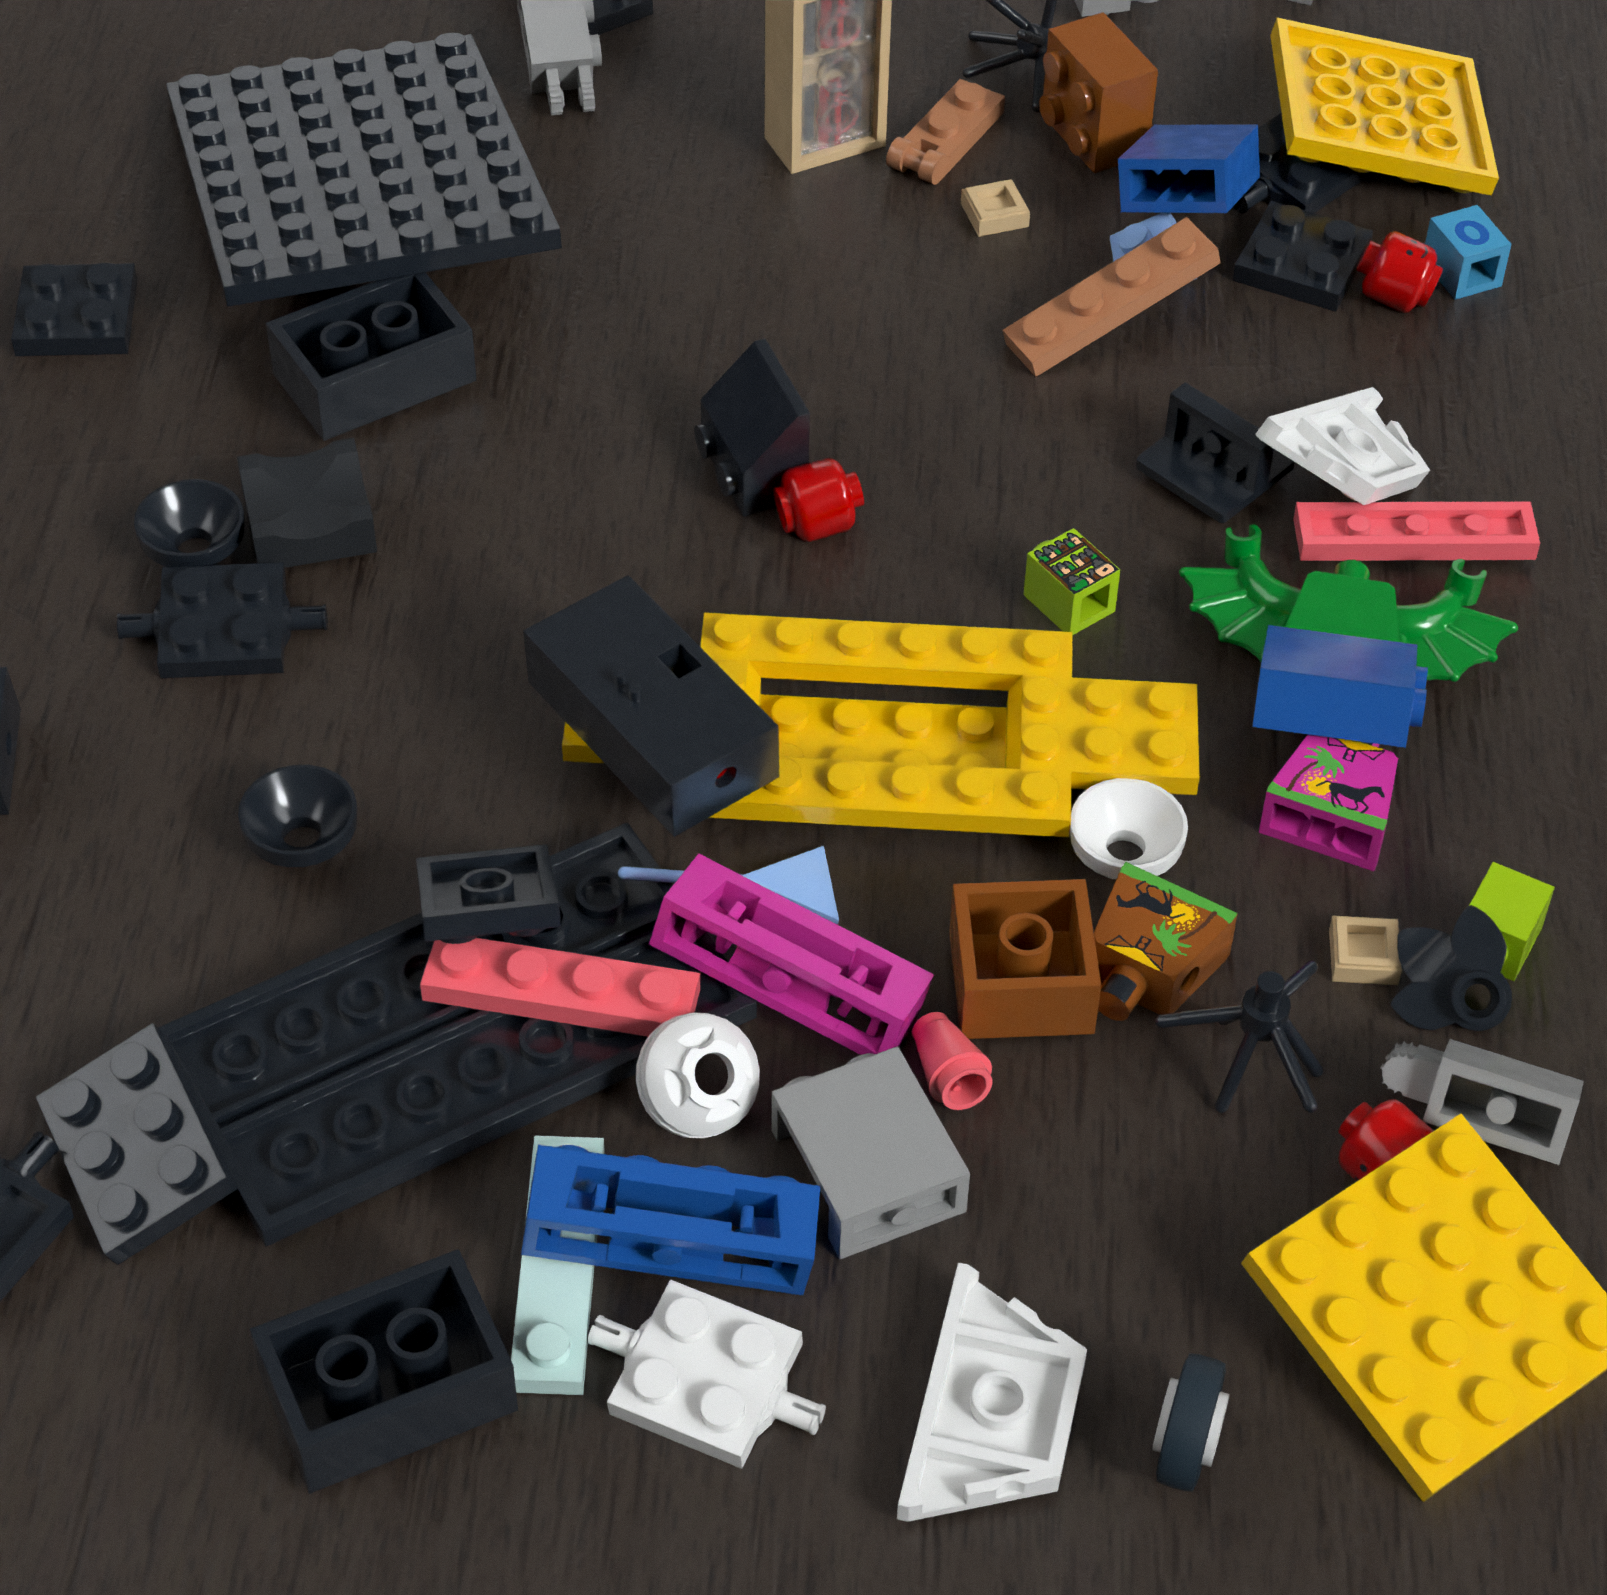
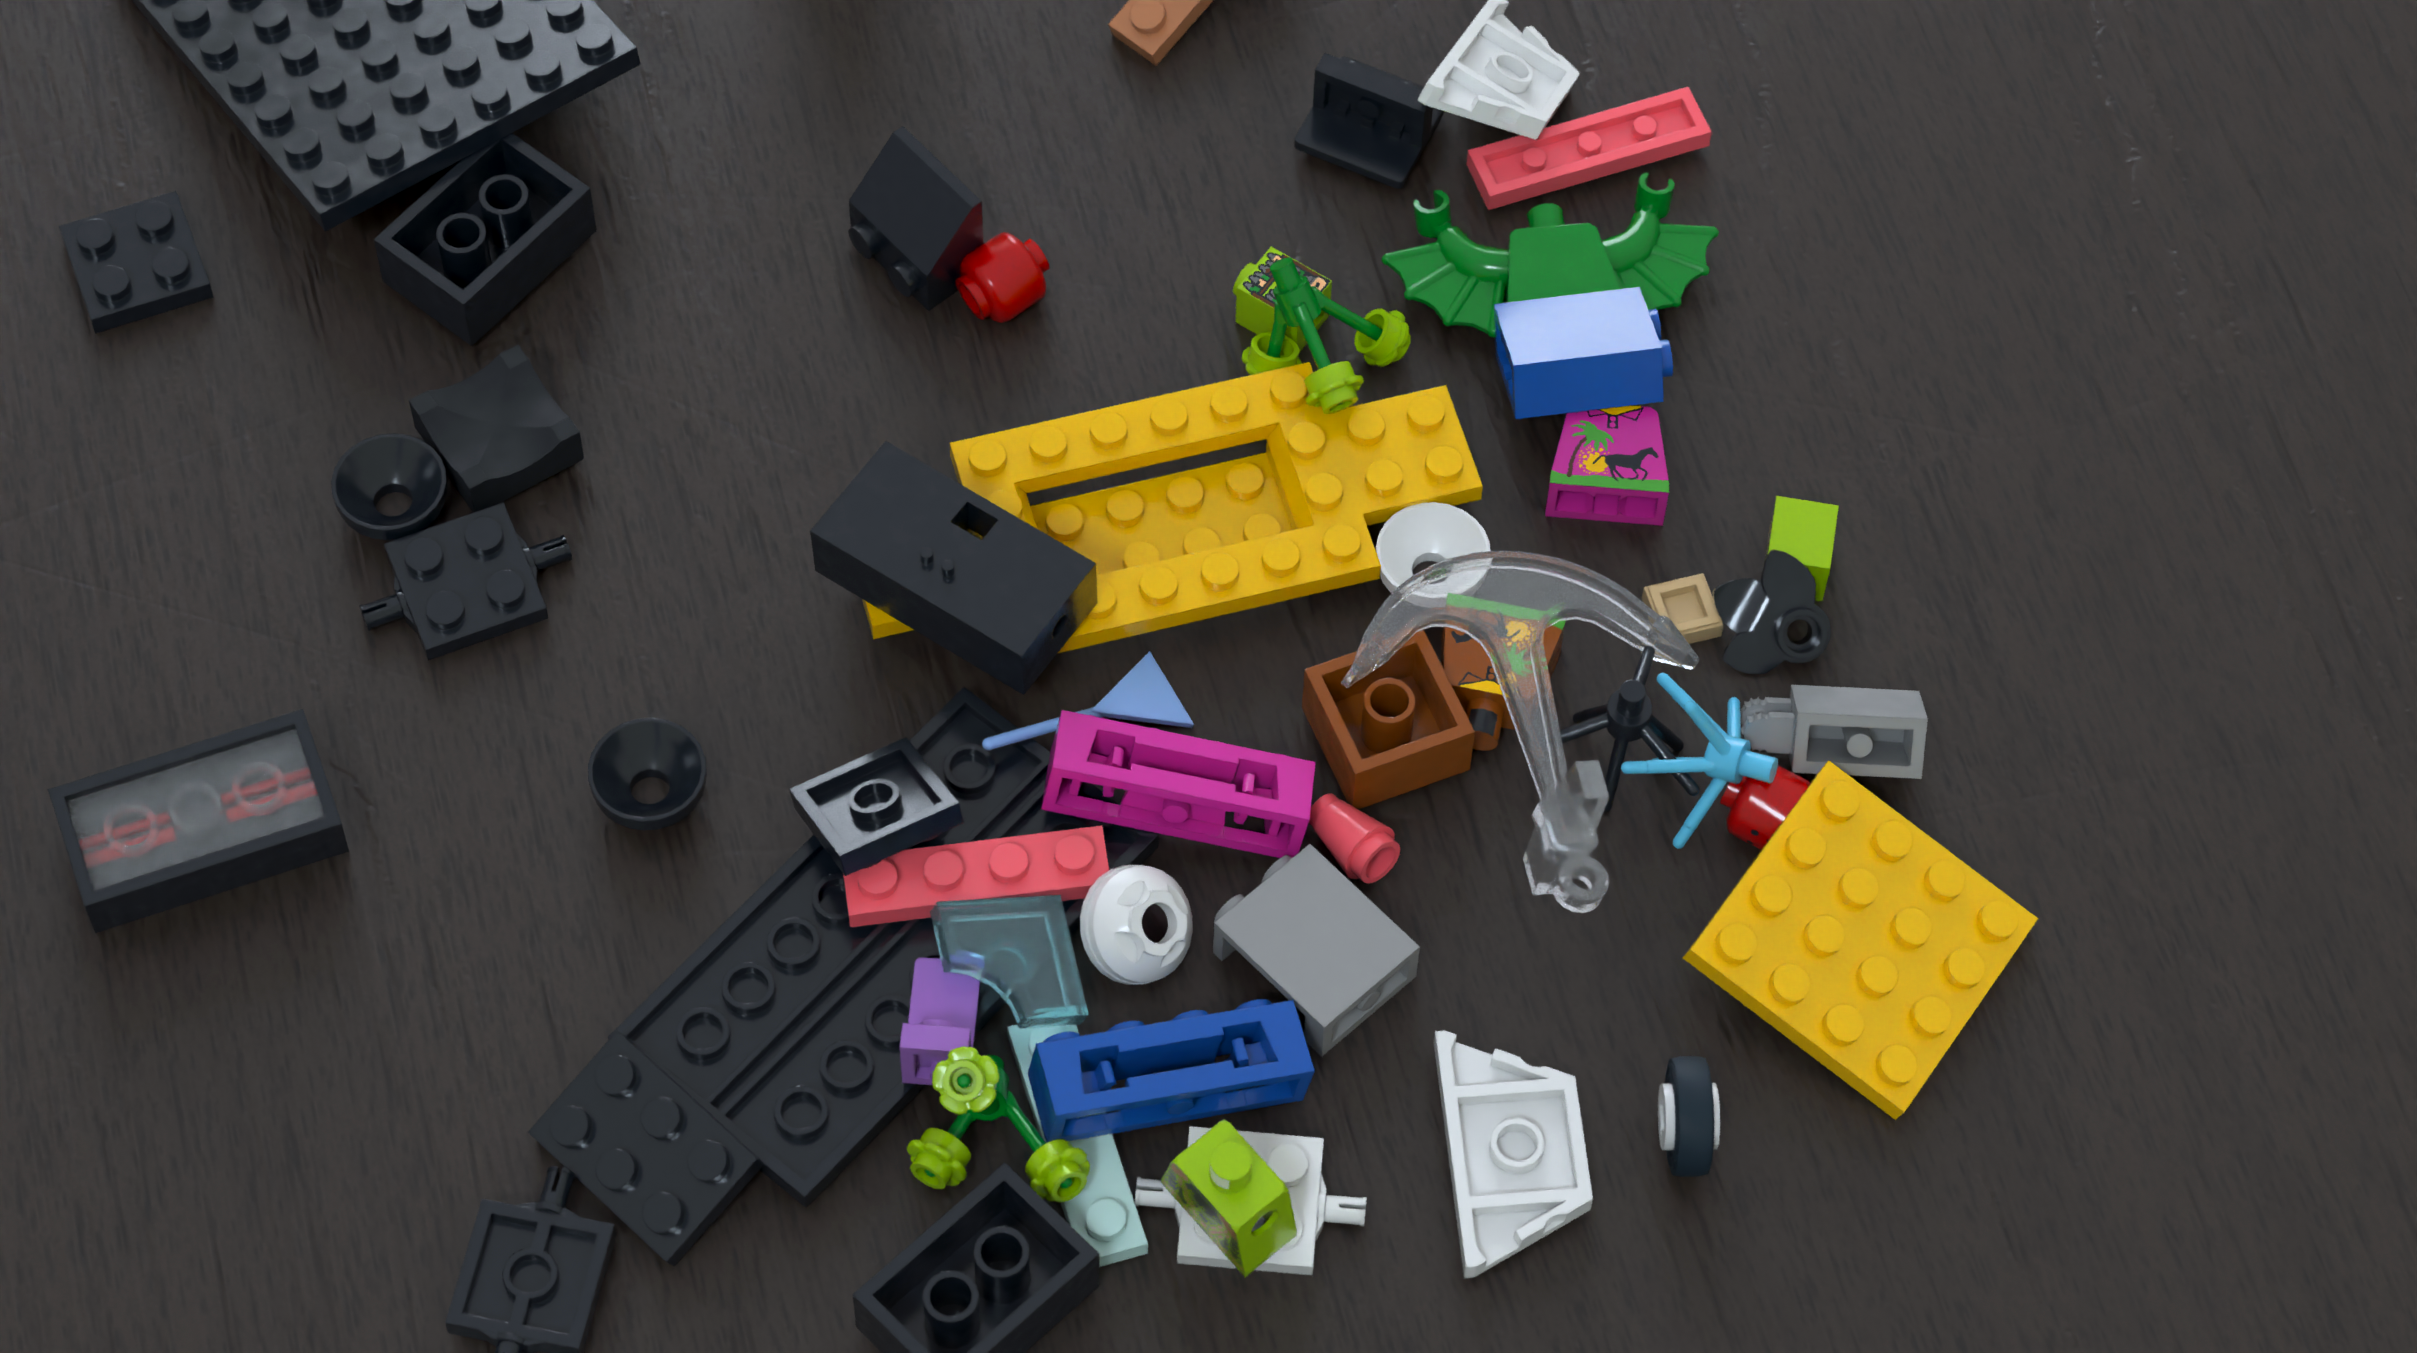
camera: 20 degrees left, 10 degrees up
(452, 1158) = (975, 1090): none -> lime plant
(459, 1116) = (939, 1019): none -> medium lavender bracket
(565, 1060) = (1017, 950): none -> clear light blue tile
(666, 1338) = (1228, 1191): none -> lime torso
(1085, 649) = (1379, 336): none -> plant
(1177, 885) = (1506, 606): none -> clear piece
(1350, 1083) = (1725, 759): none -> medium azure plant

